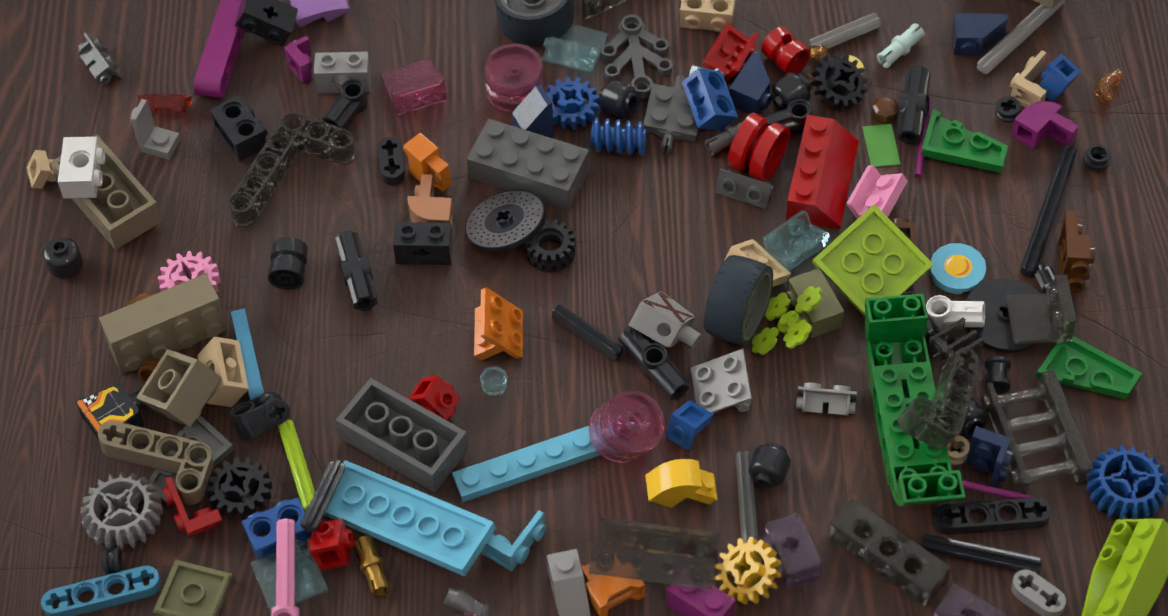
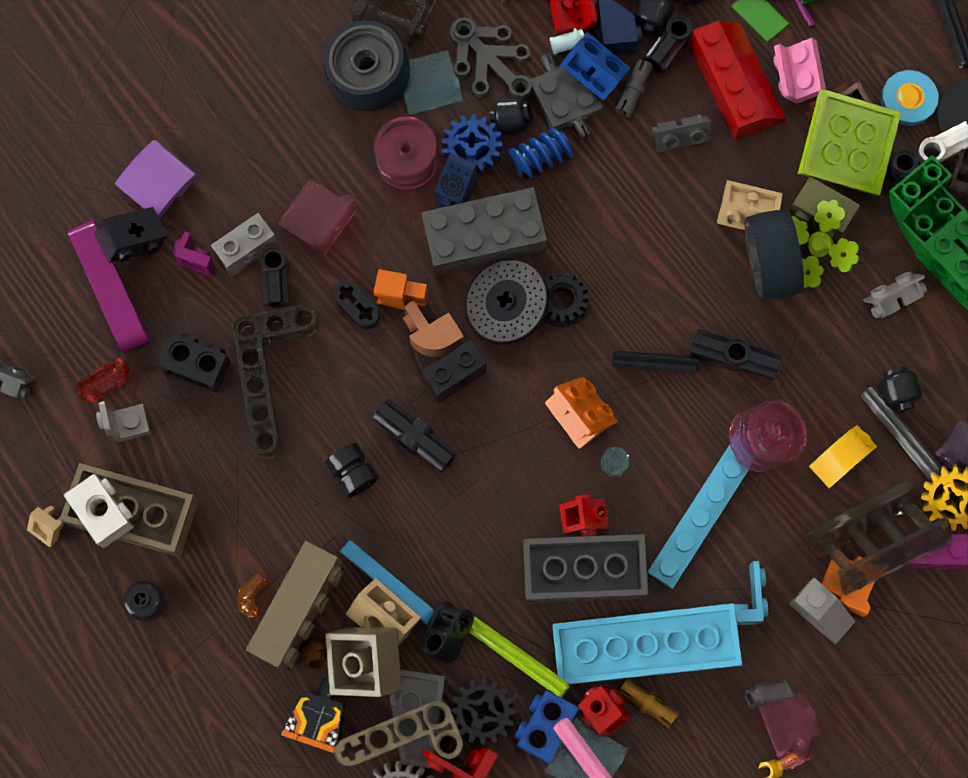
camera: 35 degrees left, 20 degrees up
(188, 267) = (268, 555): bright pink gear -> none
(323, 496) = (569, 675): black axle -> none
(665, 321) = (721, 312): light grey torso -> none
(687, 423) = (805, 392): blue bracket -> none
(722, 383) = (803, 337): light grey hinge -> none
(758, 147) = (675, 89): red wheel -> none
(795, 240) = (766, 160): clear light blue bracket -> none

